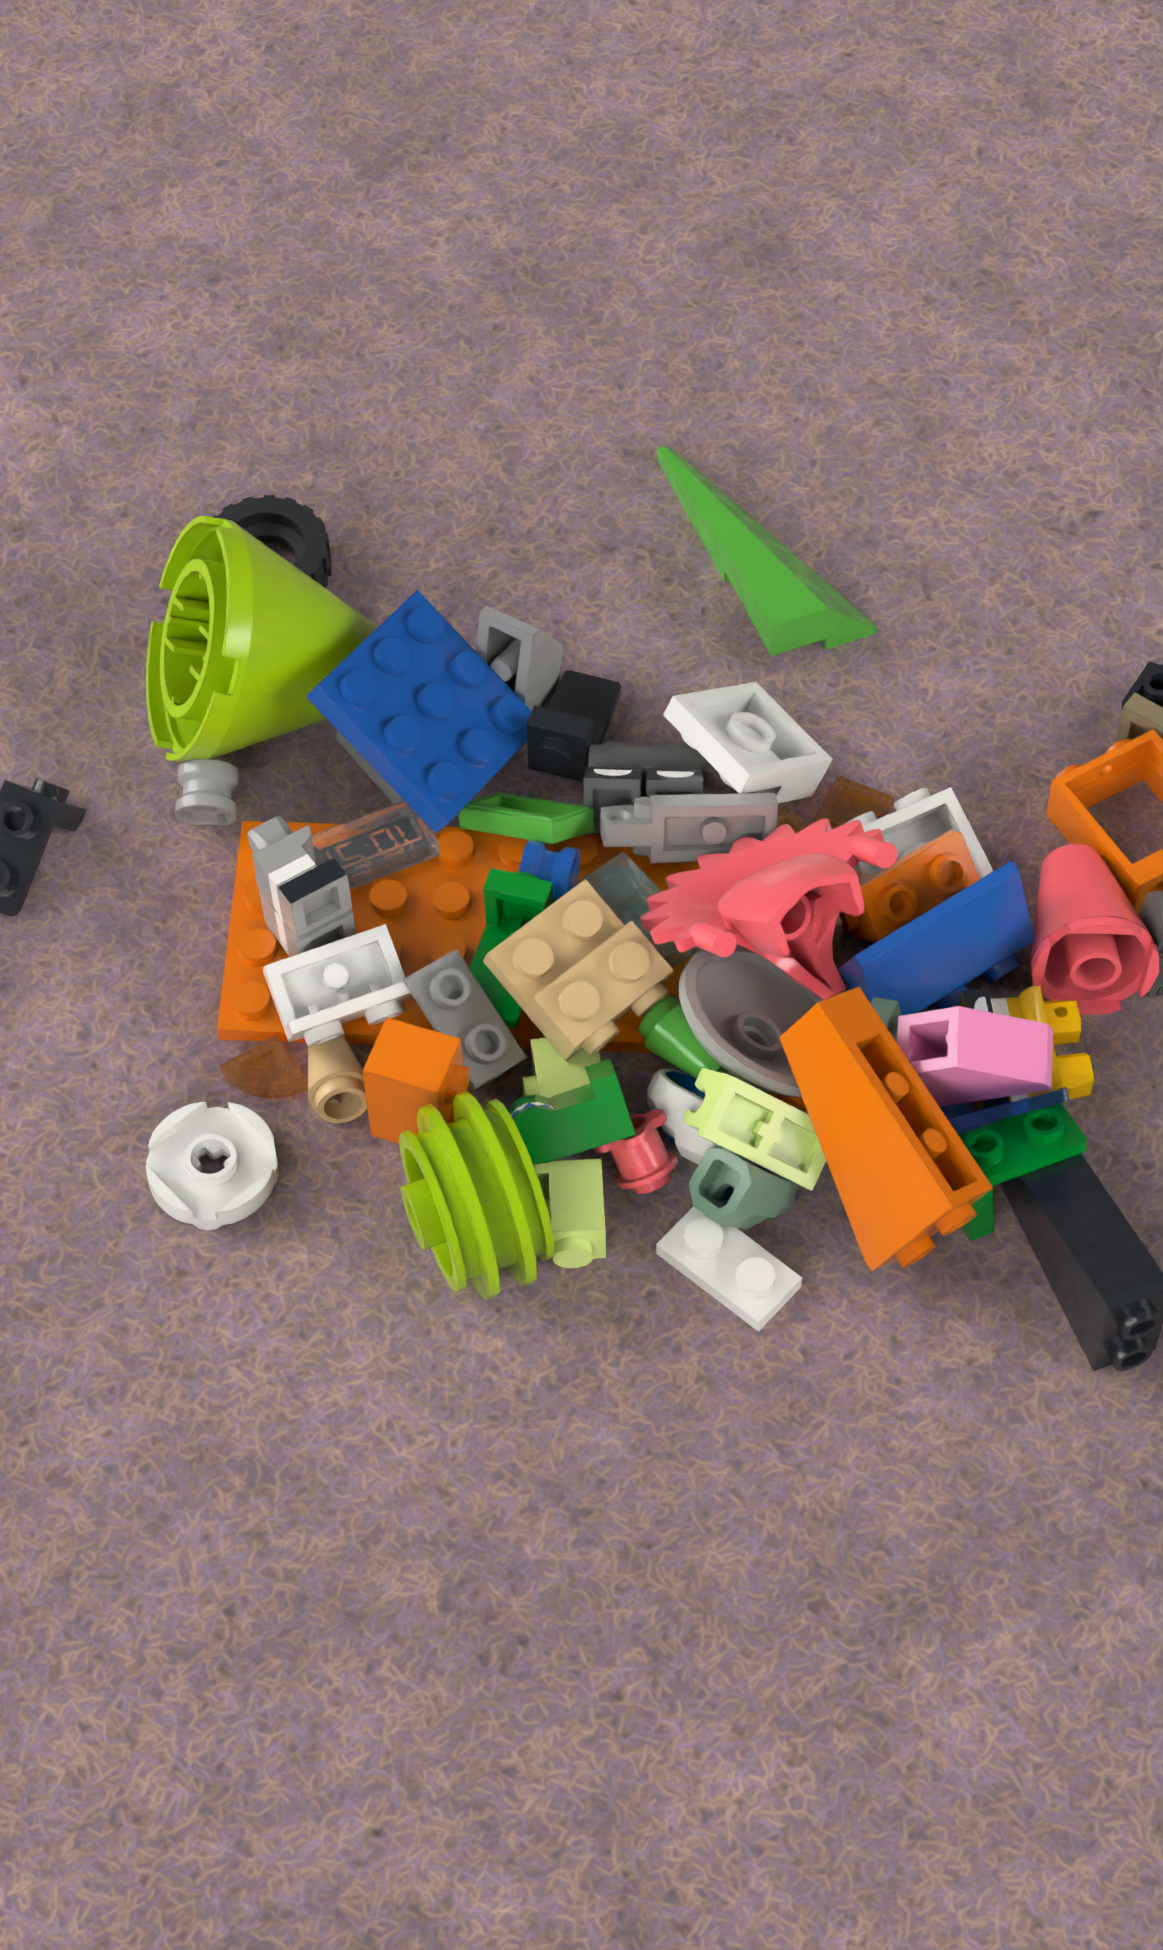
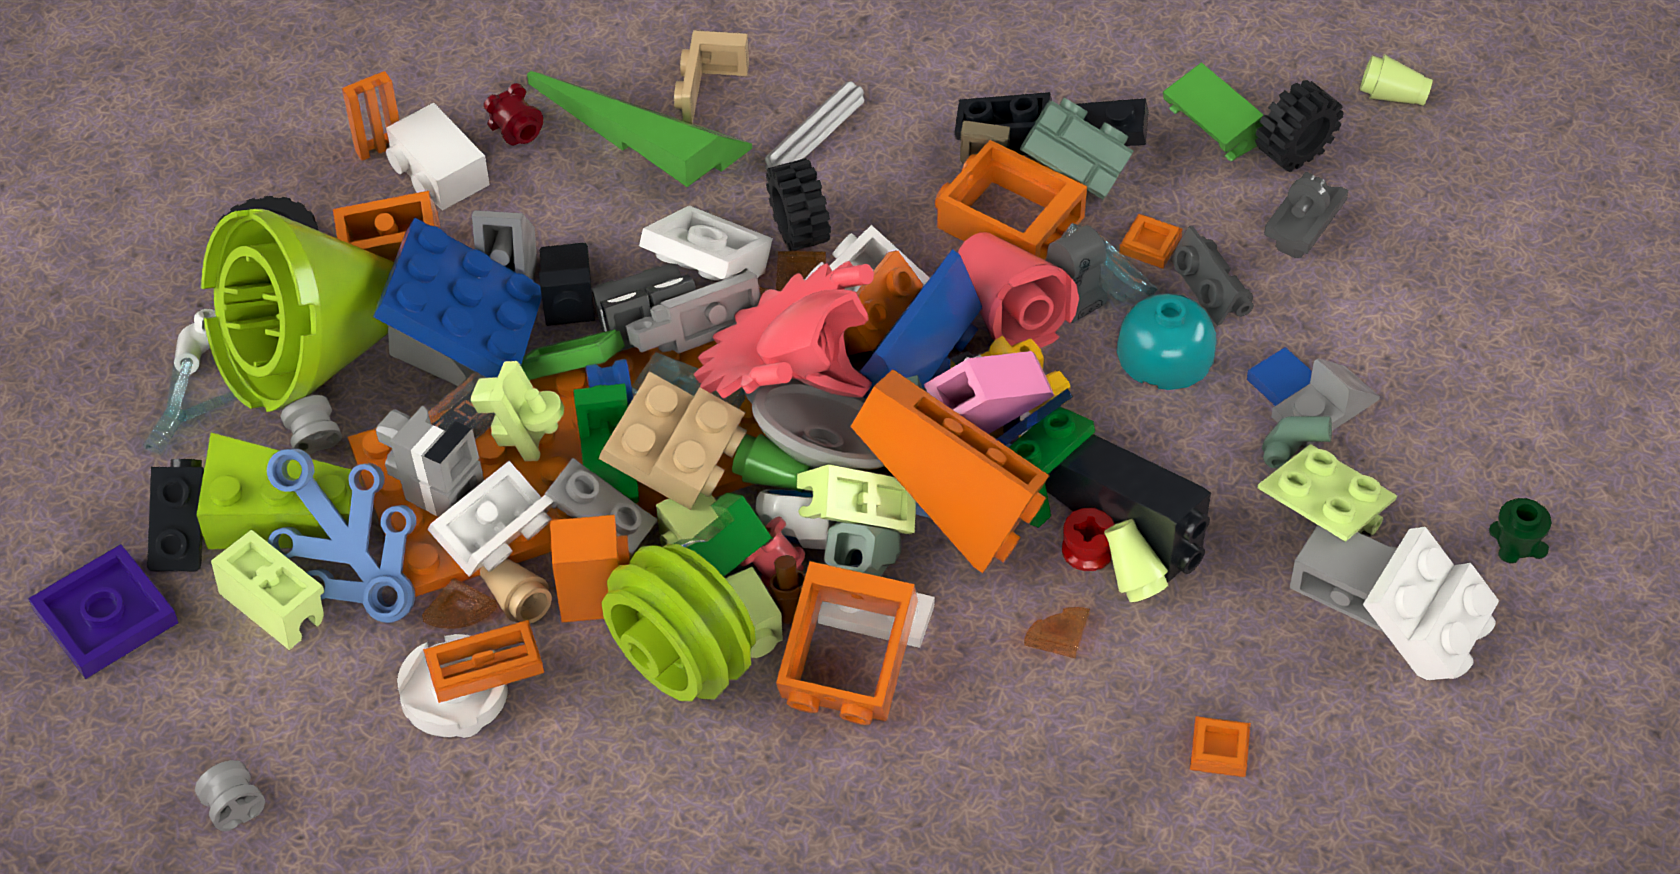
camera: 25 degrees left, 5 degrees down
(68, 968) = (268, 588): none -> yellowish green hinge
(70, 724) = (173, 415): none -> clear light blue plant
(126, 868) = (242, 499): none -> lime wedge
(129, 646) = (193, 341): none -> white arm
(172, 947) = (348, 541): none -> medium blue plant
(250, 1160) = (485, 668): none -> orange tile
(382, 579) = (383, 223): none -> orange brick
(424, 865) = (520, 409): none -> yellowish green hips
(451, 470) = (353, 110): none -> orange tile
(502, 515) = (436, 156): none -> white brick
(615, 495) = (513, 116): none -> dark red brick
(634, 1205) = (786, 587): none -> reddish brown cylinder
(654, 1216) = (854, 591): none -> orange window
(875, 495) = (708, 54): none -> tan bracket
(882, 728) = (798, 204): none -> black tyre
(930, 1380) = (1059, 632): none -> clear orange tile
(960, 636) = (817, 125): none -> axle
(1024, 1296) = (1095, 550): none -> red wheel
(1048, 1602) = (1220, 746): none -> orange tile
(1056, 1333) = (1135, 563): none -> yellowish green cone

